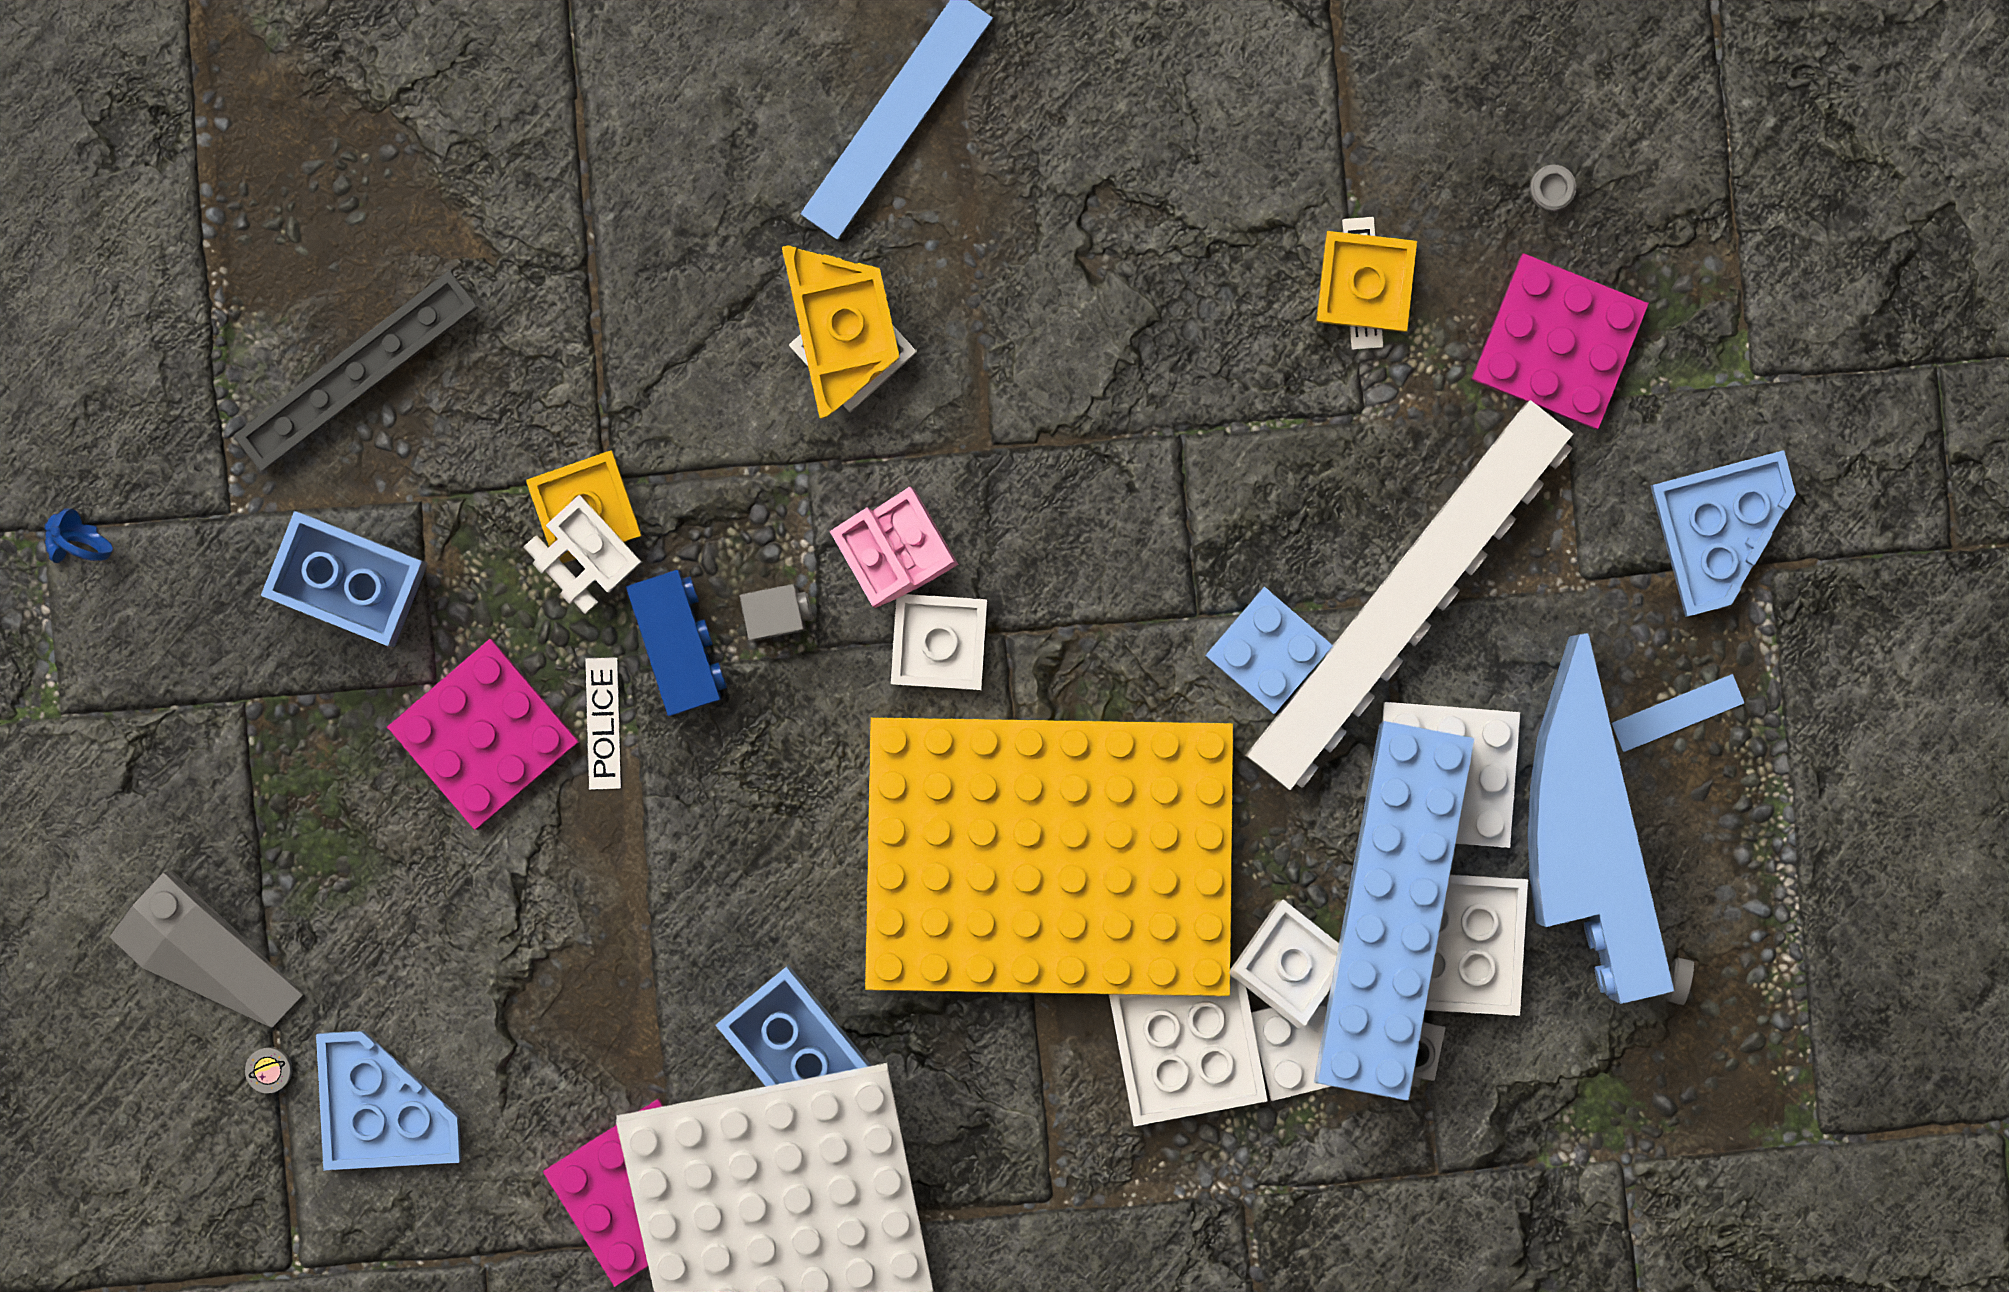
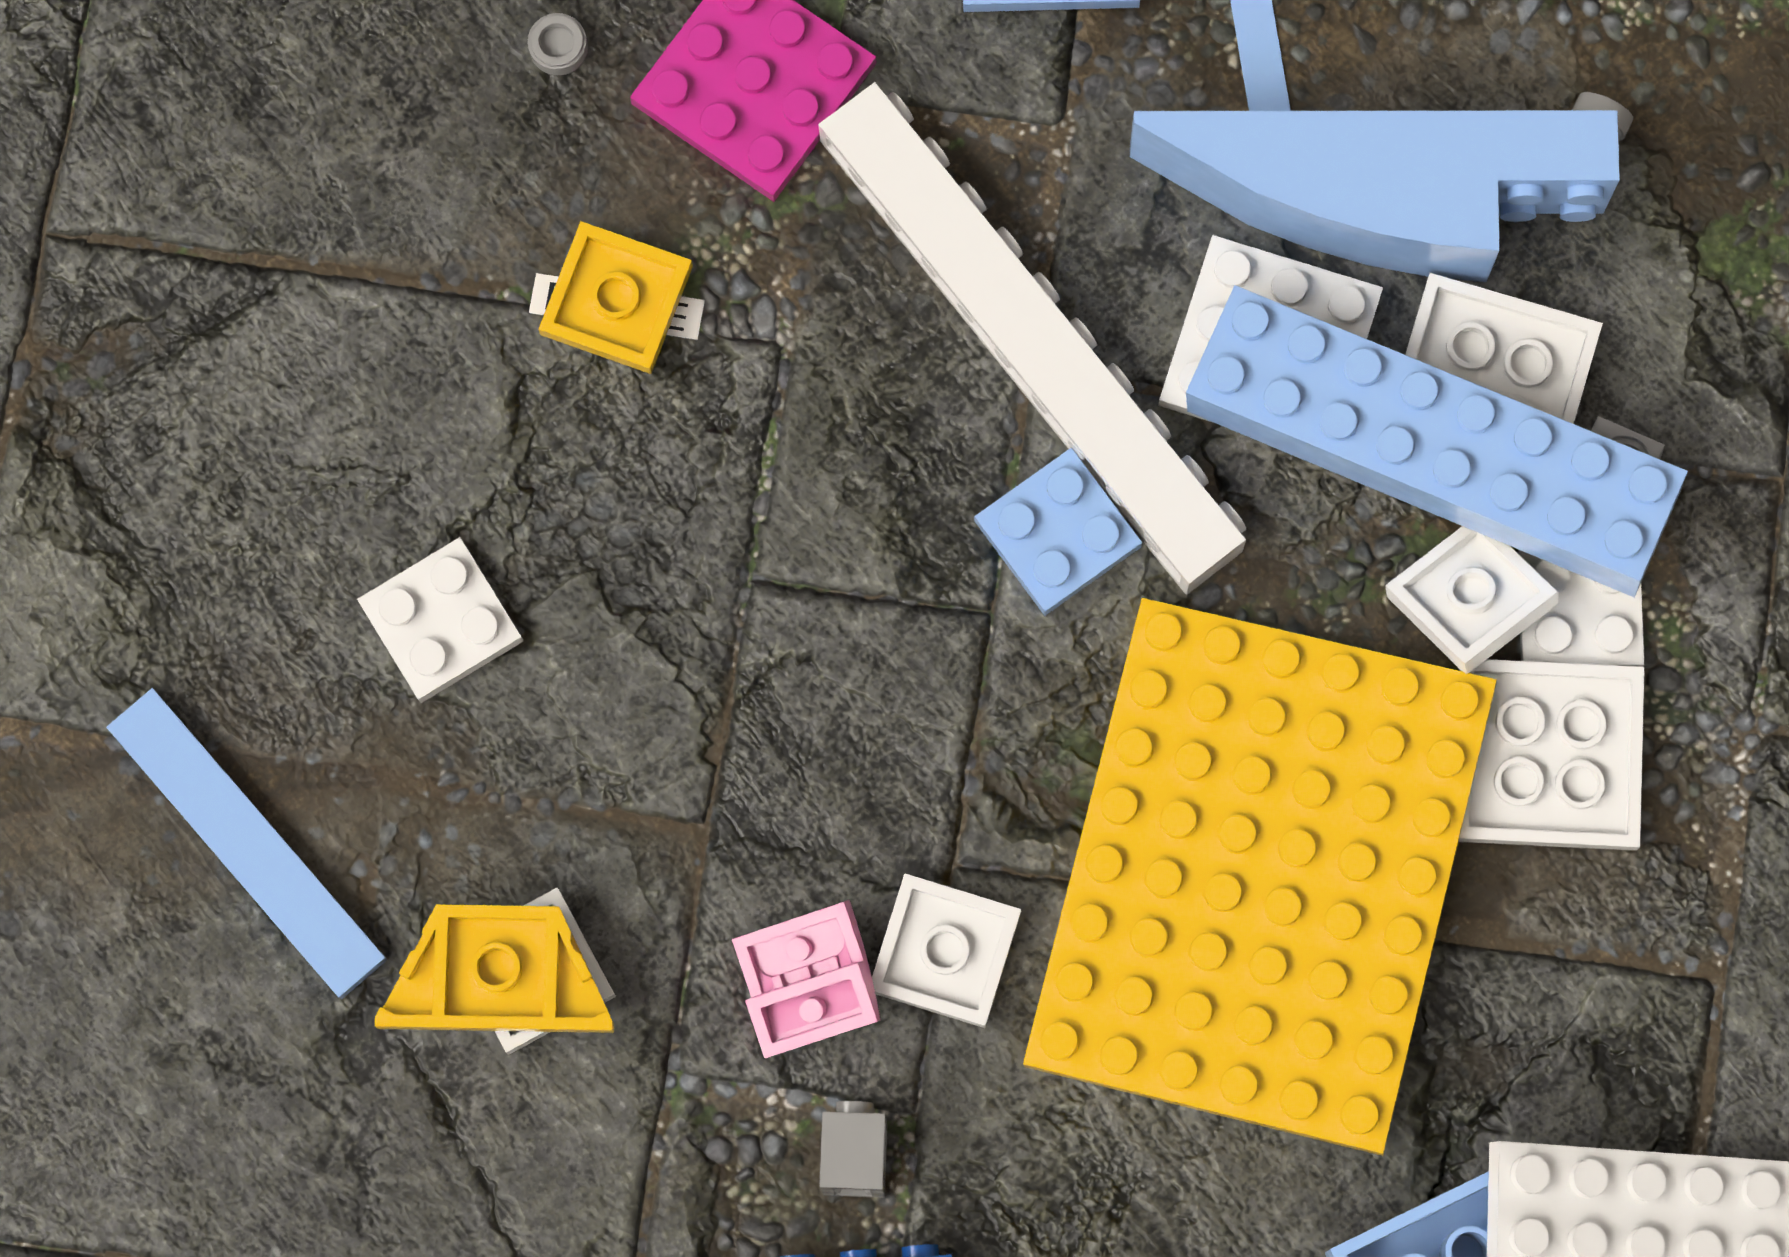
camera: 75 degrees left, 10 degrees down
(1094, 214) = (440, 620): none -> white plate

